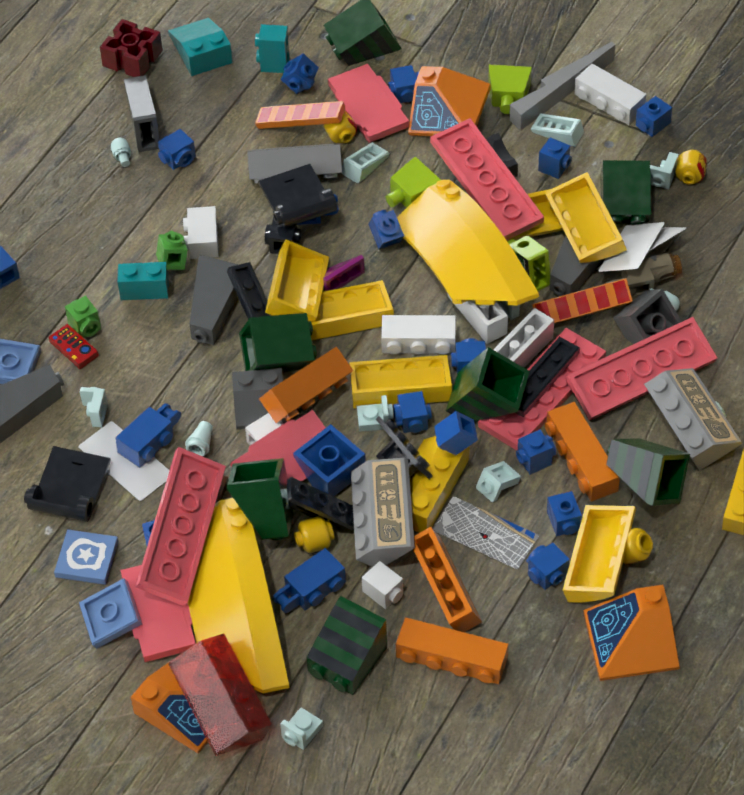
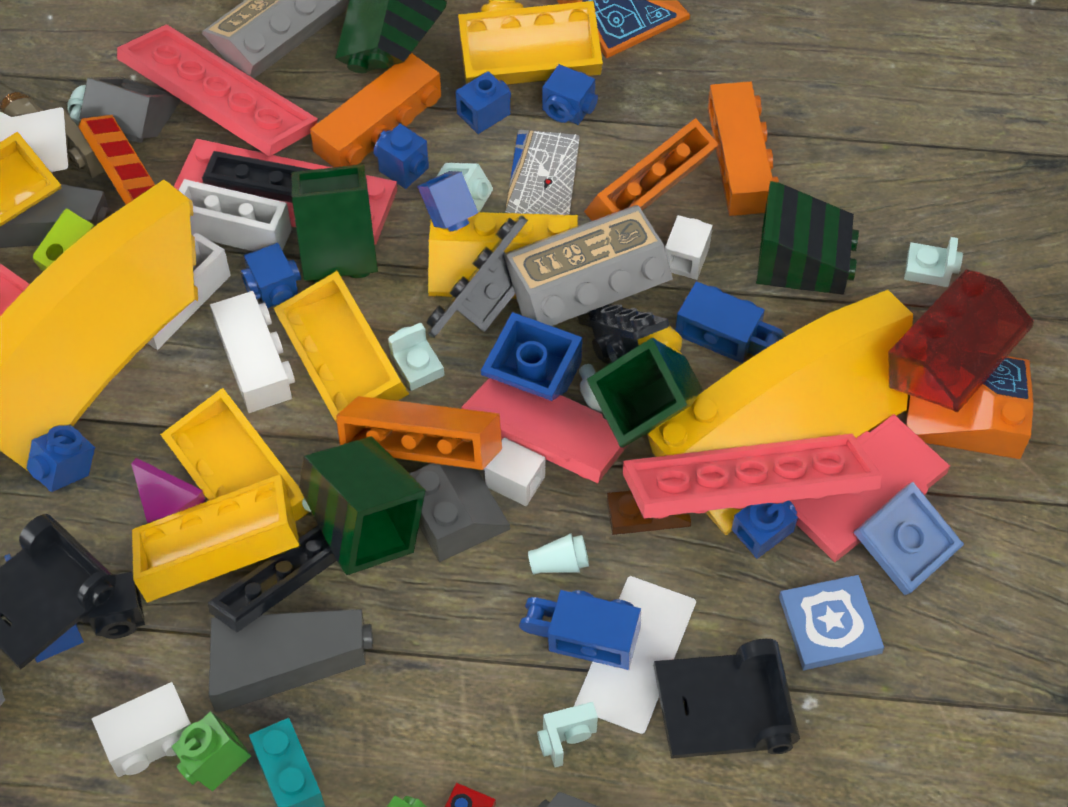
camera: 115 degrees left, 5 degrees up
(412, 412) = (394, 308): blue brick -> none

